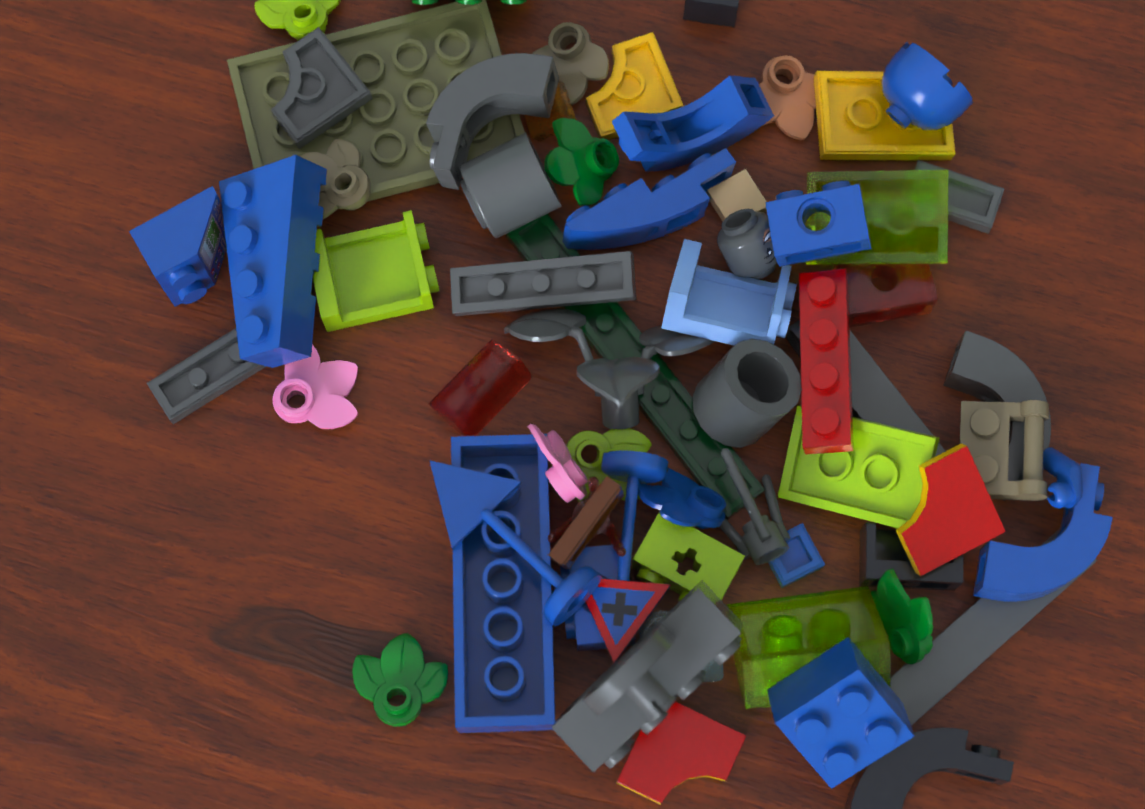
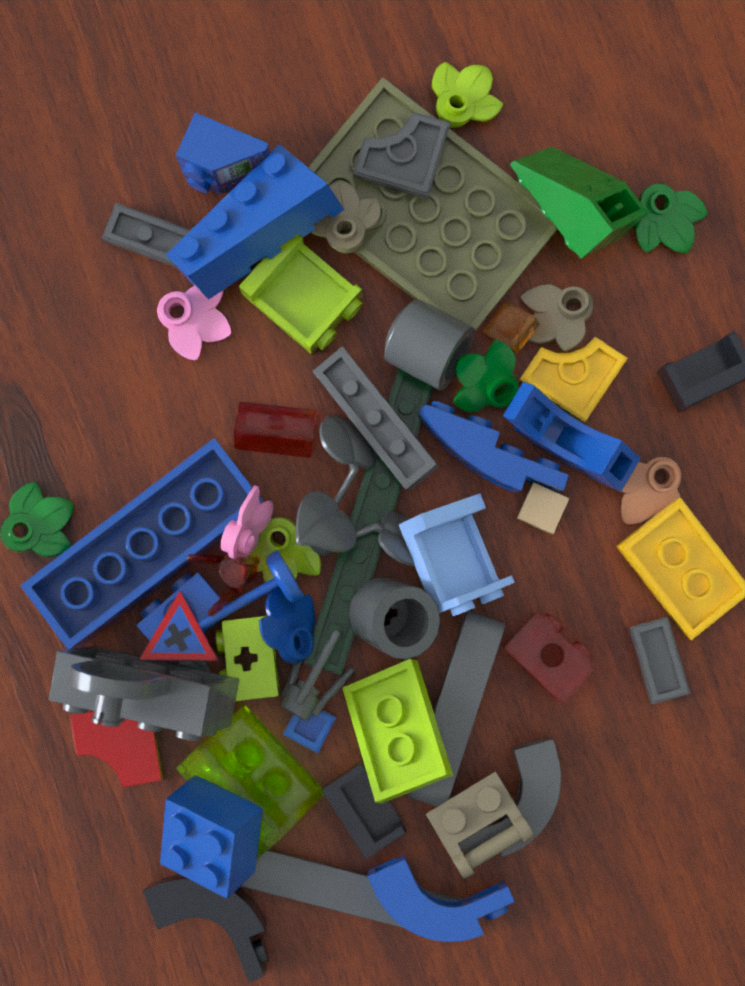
camera: 55 degrees right, 10 degrees up
(470, 498) = (179, 483): blue piece -> none
(480, 94) = (477, 274): dark grey arch -> none
(587, 523) = (216, 574): reddish brown tile -> none
(747, 244) = (511, 541): dark grey head -> none
(825, 362) = (454, 657): red plate -> none
(843, 235) = (530, 566): blue brick -> none
(903, 215) = (590, 621): clear neon green slope -> none
(904, 620) = (310, 841): green plate -> none
(921, 90) = (713, 585): blue cylinder -> none
(952, 512) = (403, 820): red tile -> none
(1068, 476) = (481, 890): blue arm -> none

